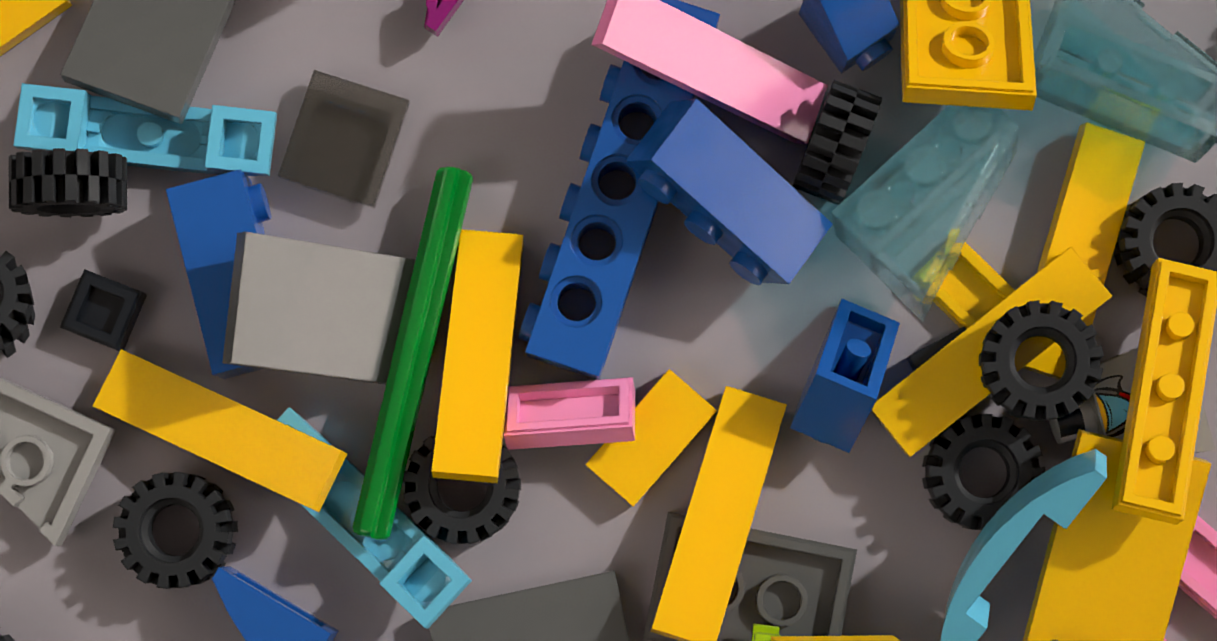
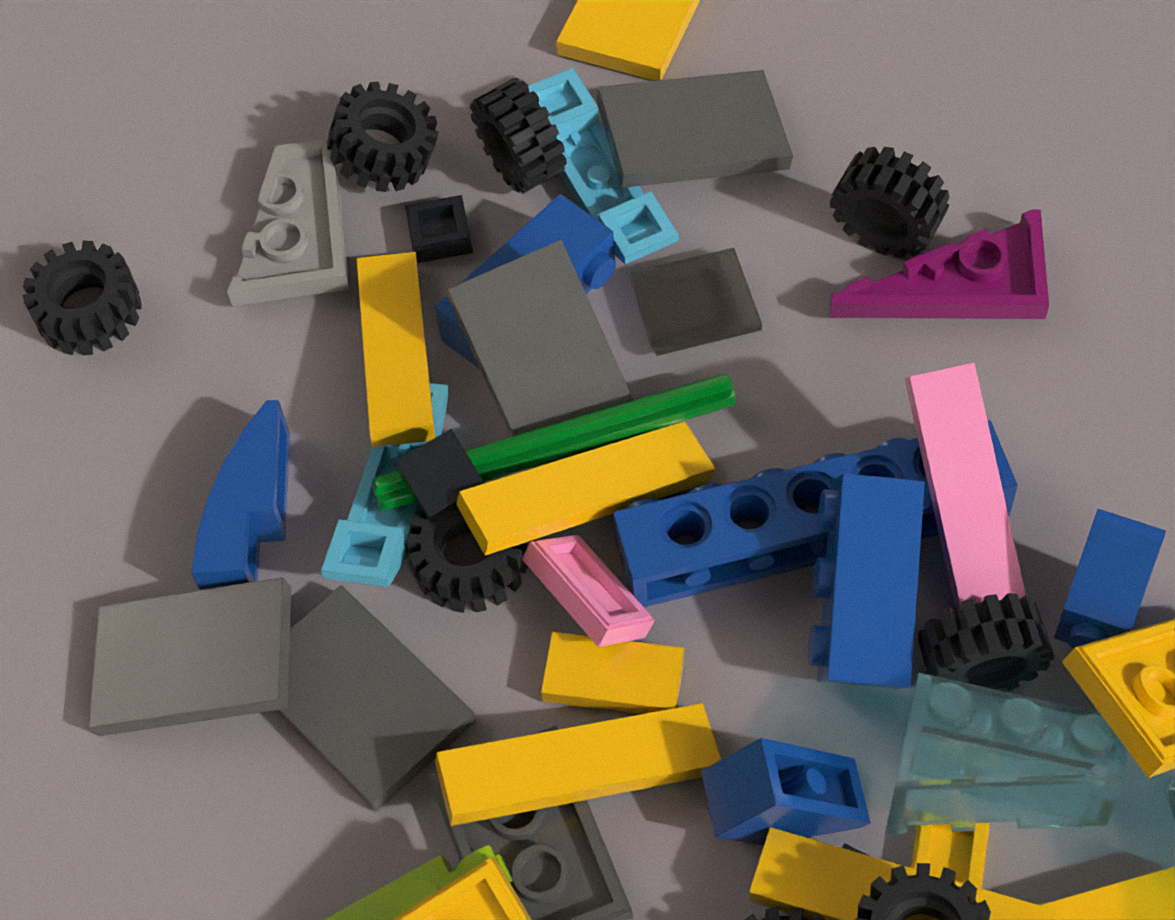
camera: 60 degrees right, 25 degrees down
(137, 522) = (290, 340): black tyre -> none
(396, 475) = (438, 473): none -> black tile

